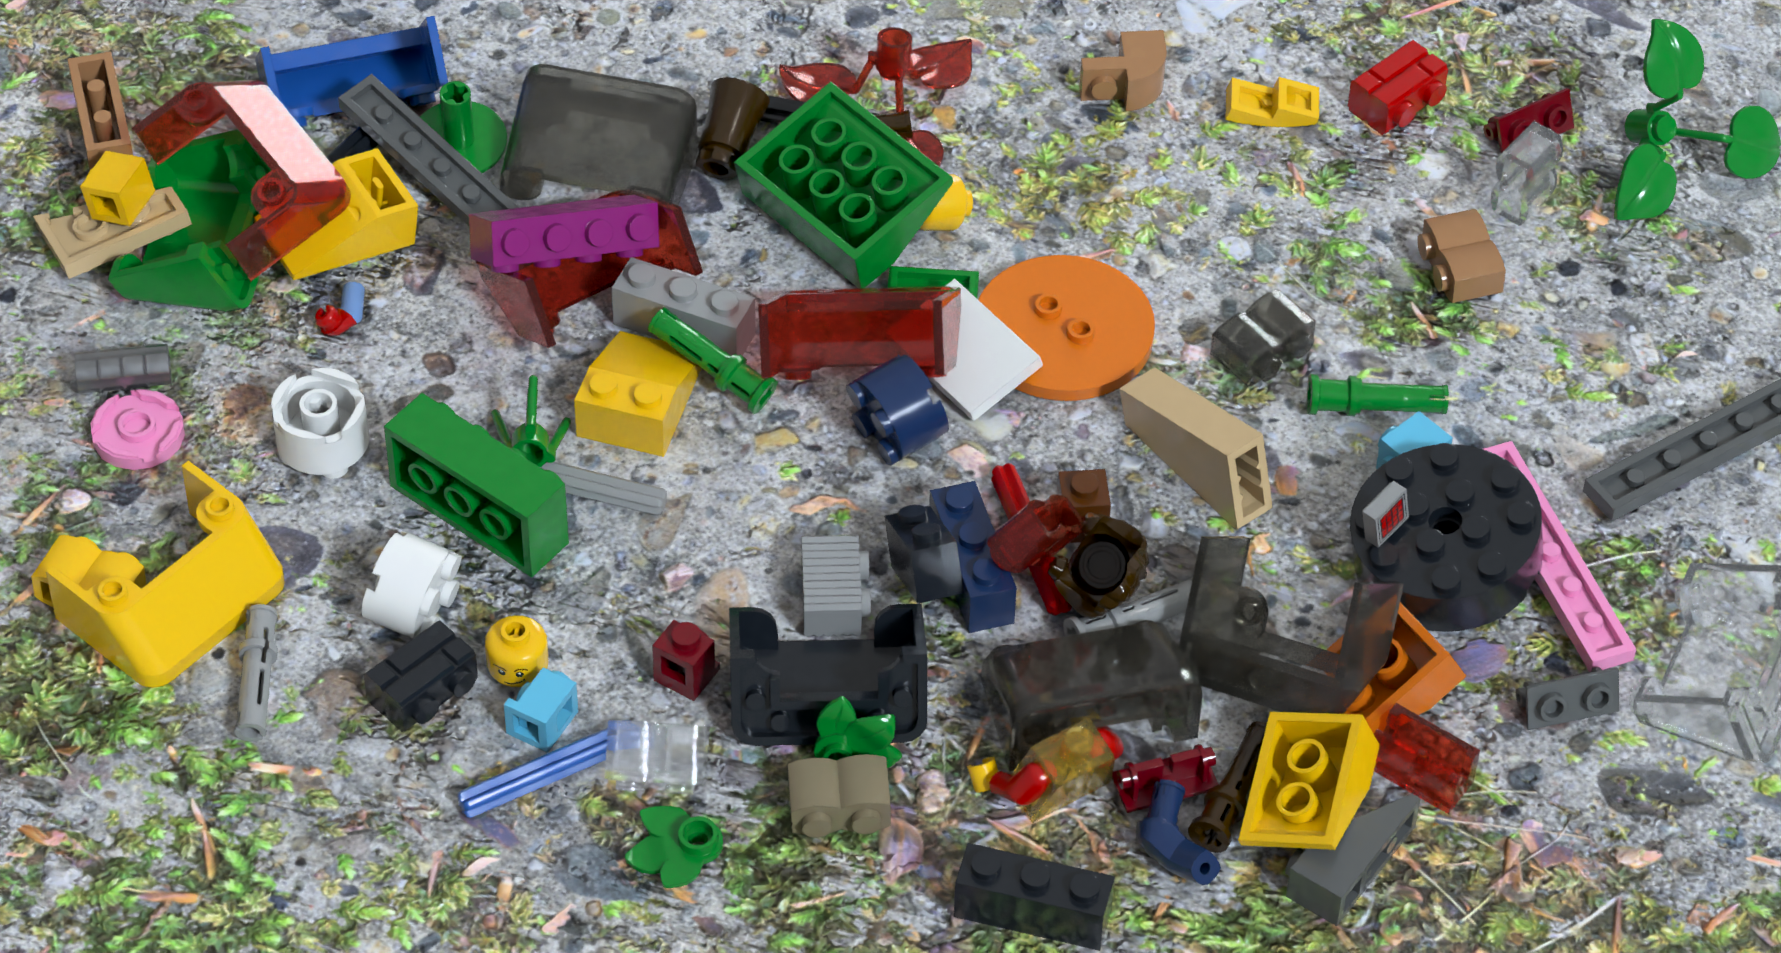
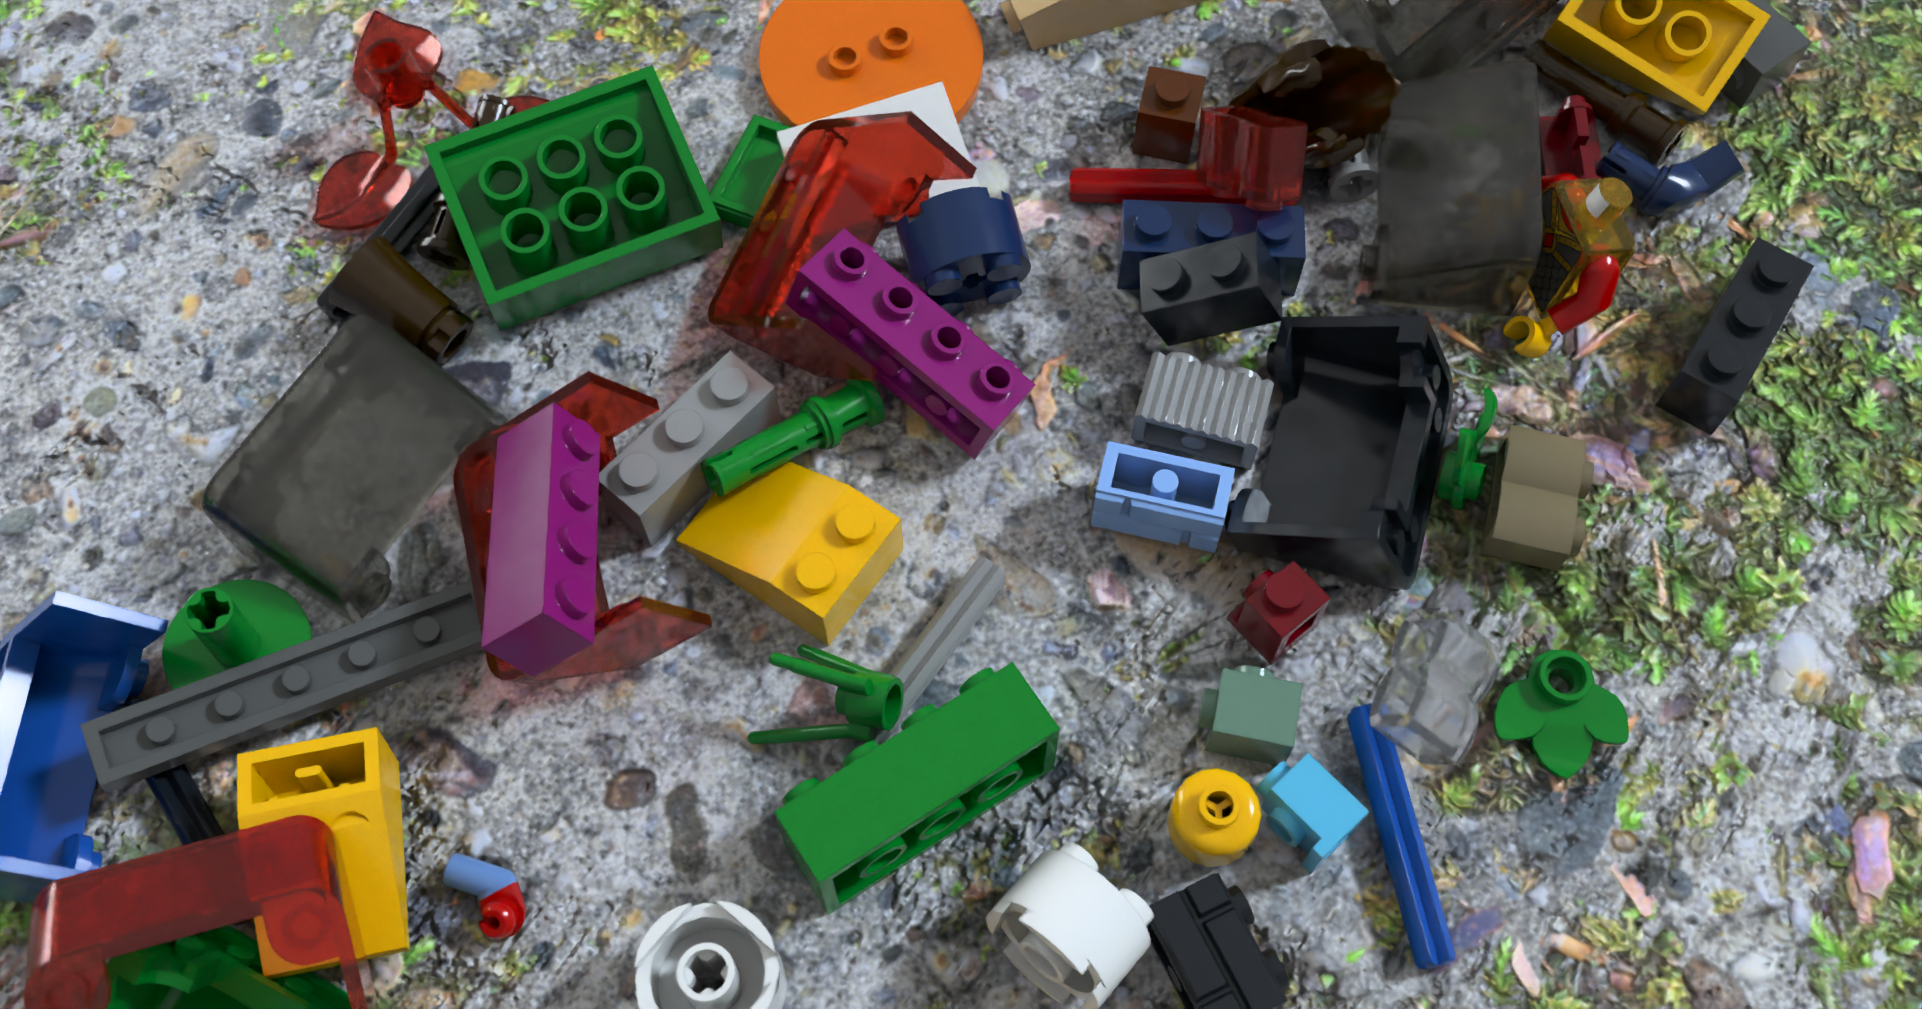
camera: 70 degrees left, 15 degrees up
(602, 662) = (1251, 715): none -> sand green brick
(743, 561) = (1162, 496): none -> light blue brick
(805, 394) = (911, 341): none -> magenta brick

